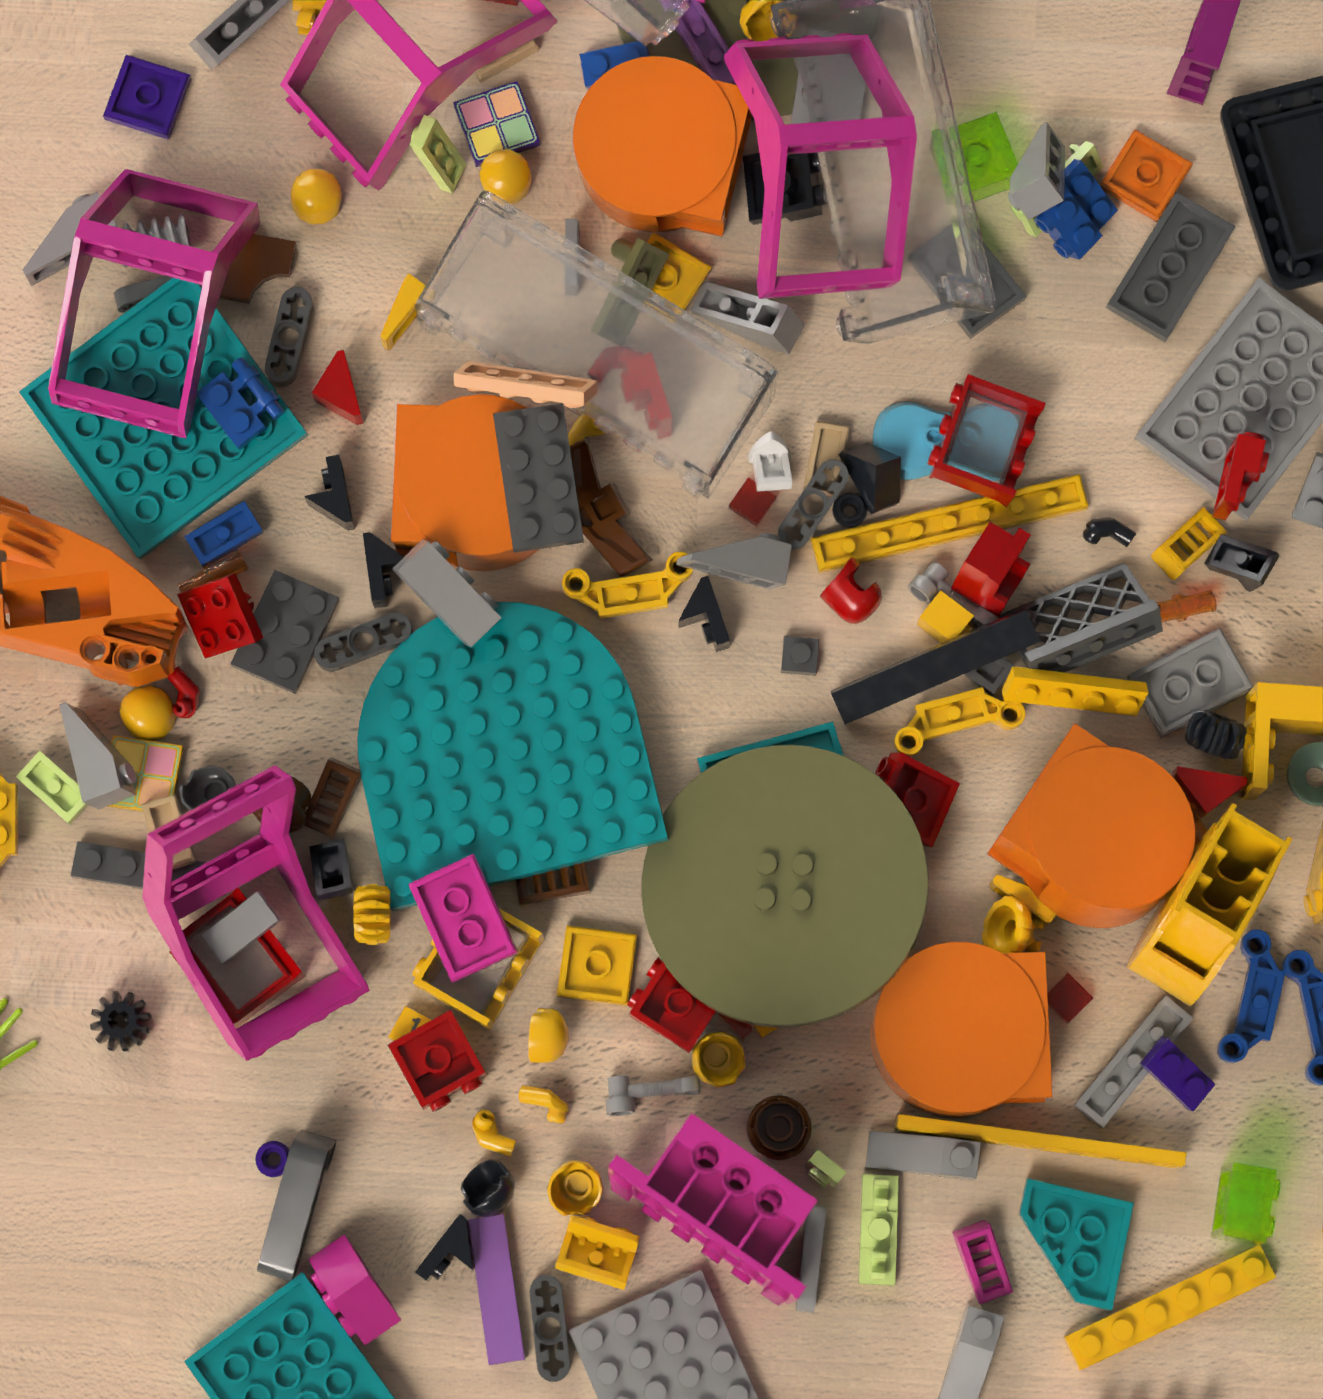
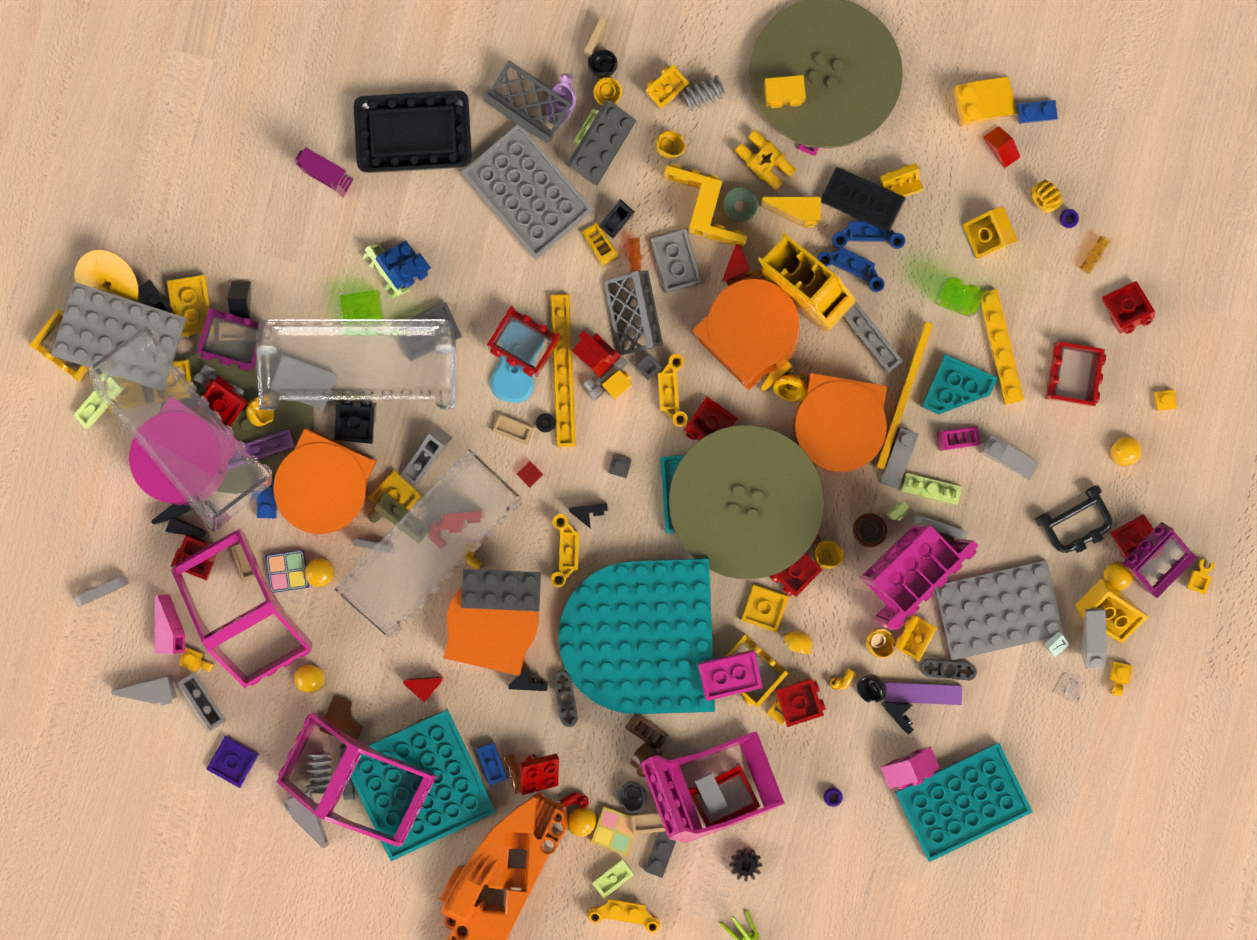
camera: 75 degrees left, 10 degrees up
(99, 767) = (607, 853): light grey slope -> none
(231, 409) = (427, 747): blue plate -> none
(285, 311) = (376, 697): dark grey beam -> none
(292, 623) = (549, 736): dark grey plate -> none
(295, 1204) = (859, 789): dark grey beam -> none
(331, 870) = (688, 739): black slope -> none
(333, 503) = (487, 699): black slope -> none
(372, 914) = (716, 722): yellow gear -> none
(402, 312) = (385, 643): yellow slope -> none
(437, 153) = (303, 608): yellowish green plate -> none
(448, 591) = (553, 650): light grey brick -> none
(526, 383) = (447, 586): light nougat plate -> none
(545, 1098) = (830, 648): yellow arm -> none
(567, 891) = (720, 607): reddish brown slope -> none
(600, 514) = (521, 558): reddish brown plate -> none
(622, 1093) = (836, 608): light grey brick -> none
(753, 561) = (563, 485): light grey slope -> none
(771, 463) = (512, 460): white tile -> none
(777, 140) = (349, 426): dark pink window -> none
(820, 477) = (545, 455): dark grey beam -> none
(848, 598) = (594, 433): red helmet -> none
(874, 475) = (529, 405): black slope -> none
(935, 666) = (642, 396): black tile -> none
(1040, 174) = (382, 280): light grey slope -> none
(1068, 998) = (831, 363): clear red tile -> none
(1074, 691) = (671, 324): yellow plate -> none
(1108, 528) = (582, 286): black arm -> none
(1145, 175) = (388, 220): orange tile -> none
(1170, 267) = (444, 218): dark grey plate -> none
(1177, 1073) = (883, 316): dark purple plate -> none
(1215, 734) = (708, 255): black gear -> none
(1242, 466) = (568, 207): red plate -> none

